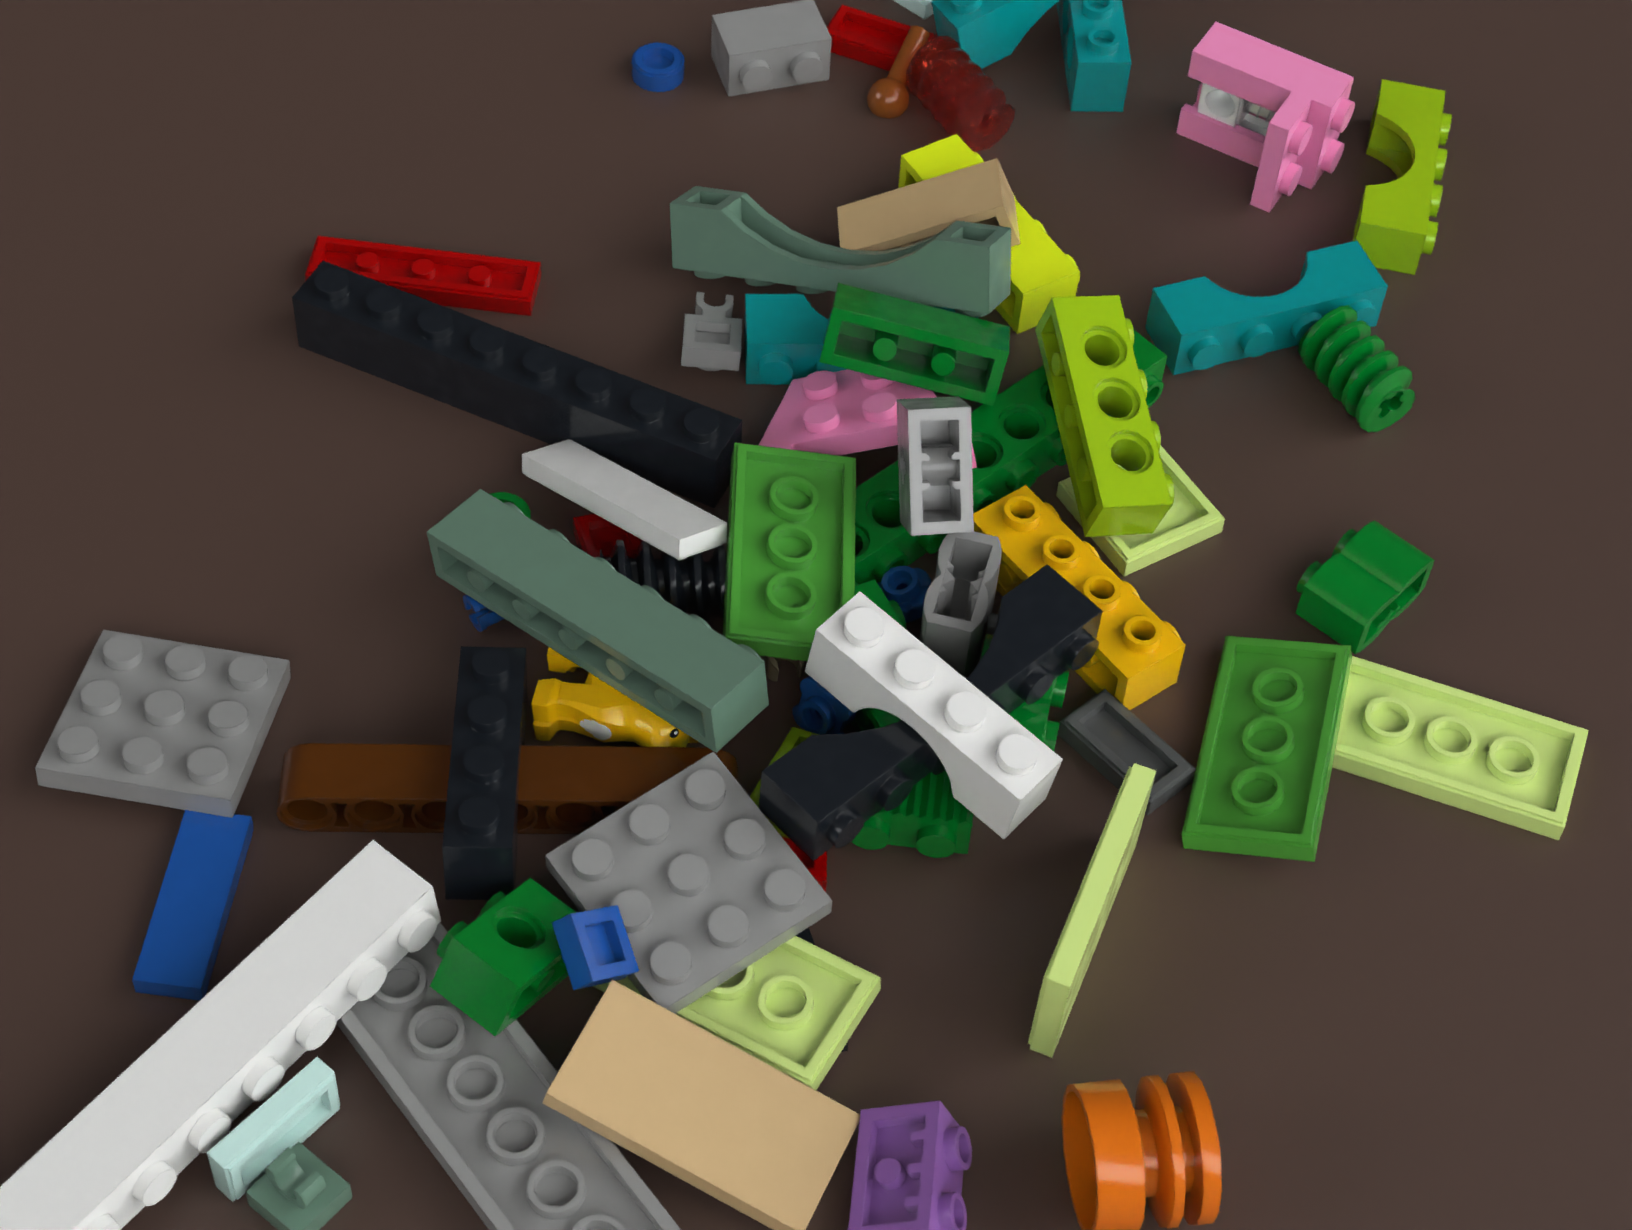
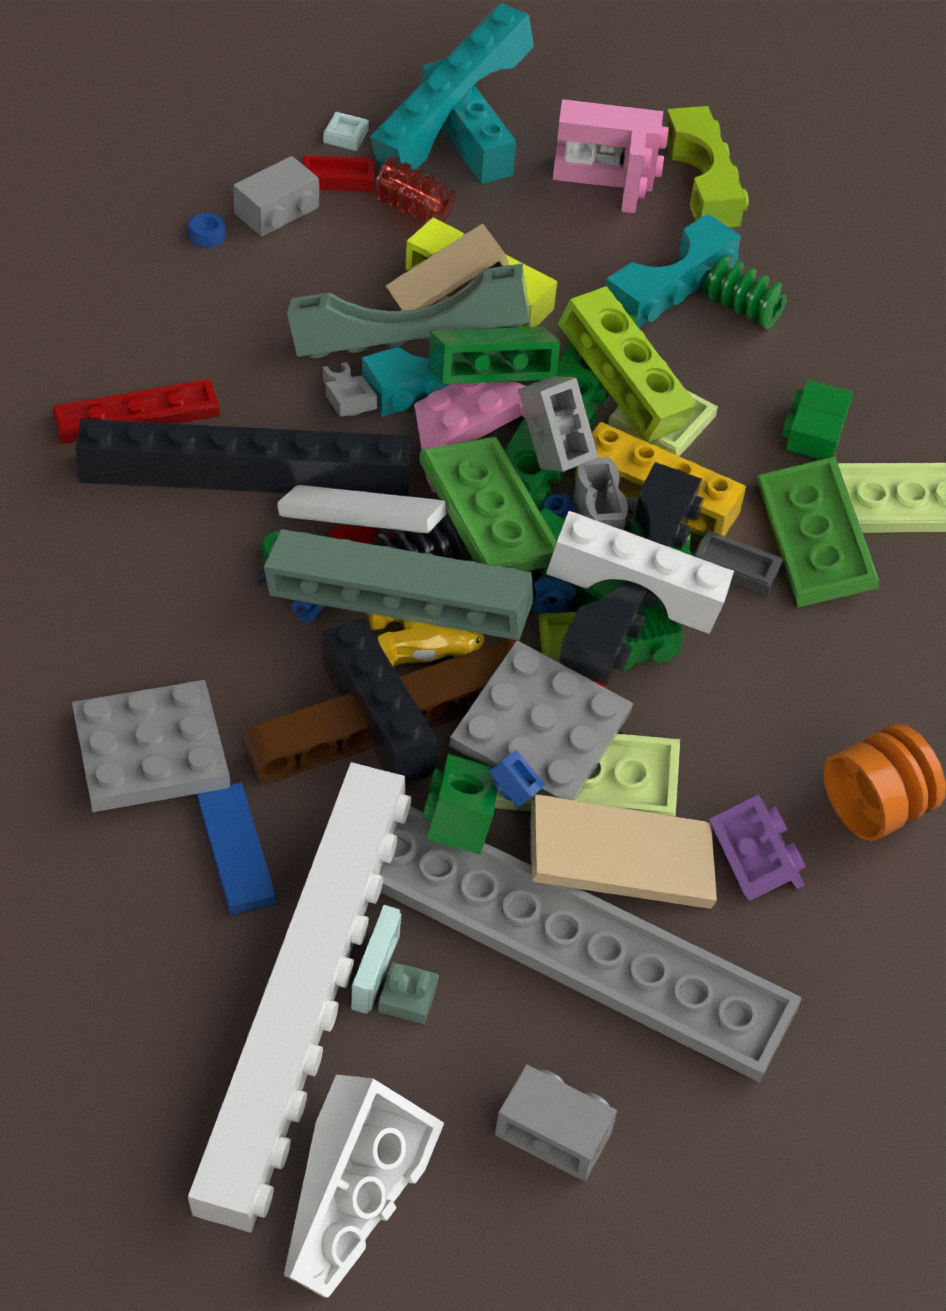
camera: 25 degrees left, 0 degrees up
(889, 95) = (365, 206): dark orange bar -> none
(1090, 910) = (781, 657): yellowish green tile -> none

